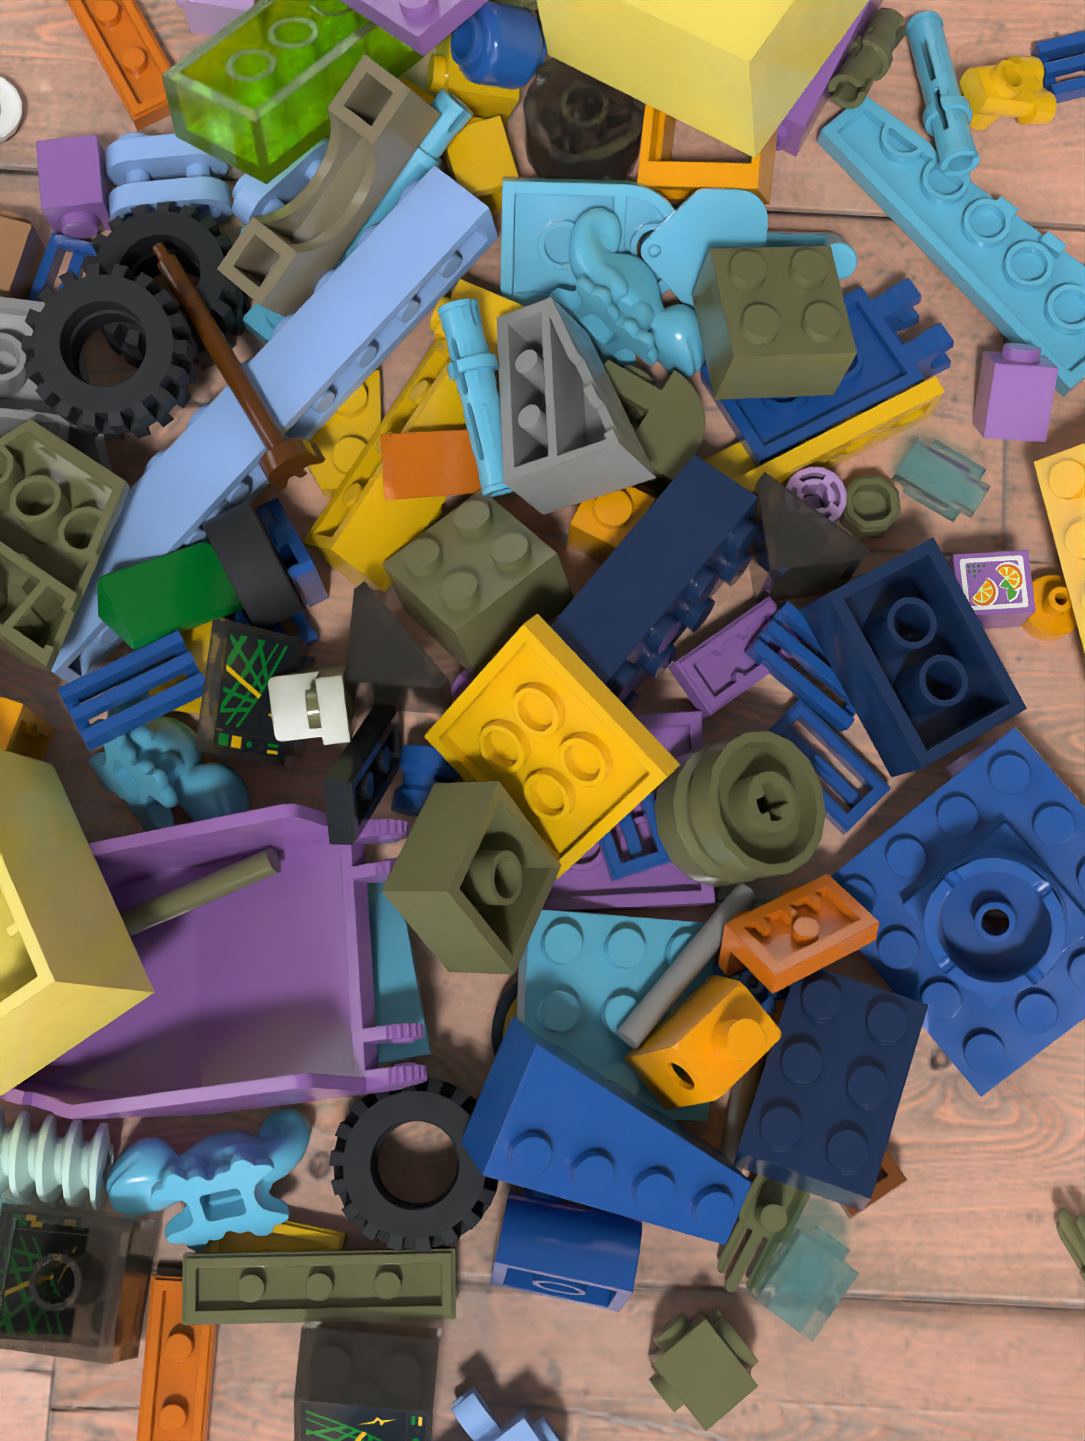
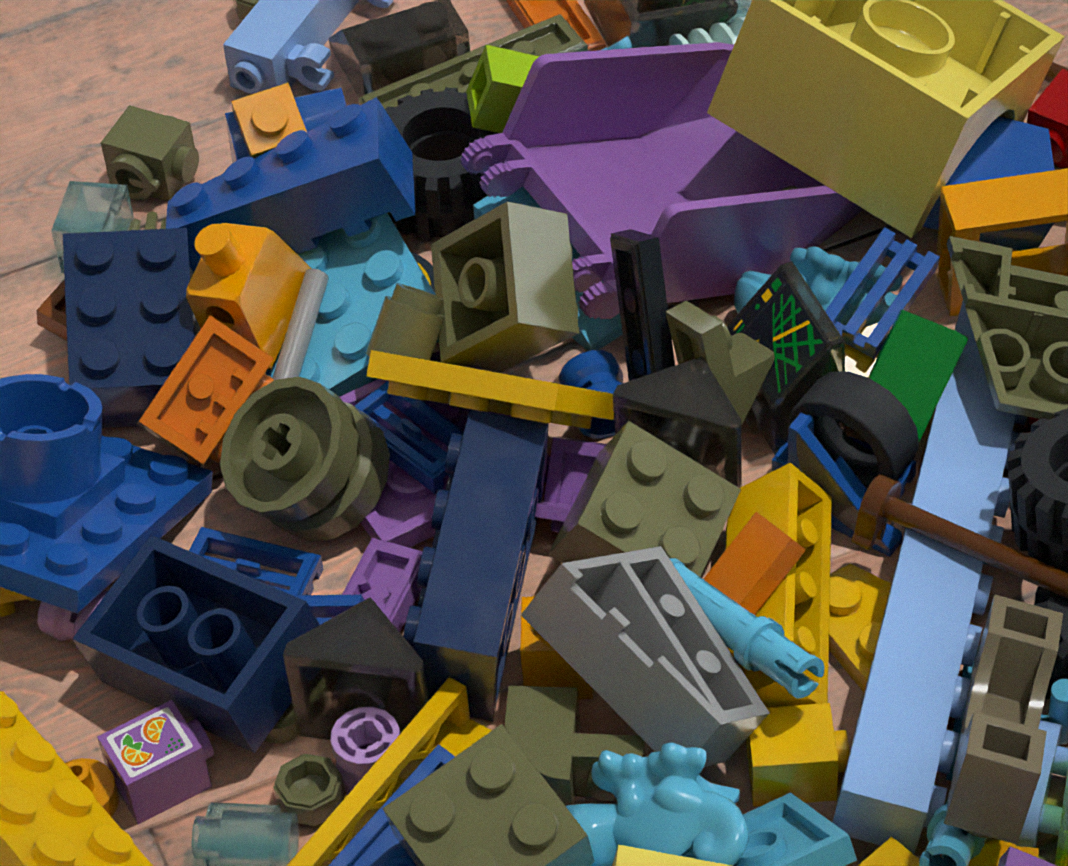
camera: 160 degrees right, 30 degrees down
(320, 1155) = (496, 86): none -> lime brick
(583, 894) = (408, 323): none -> olive brick
(592, 1249) = (267, 118): none -> light orange plate

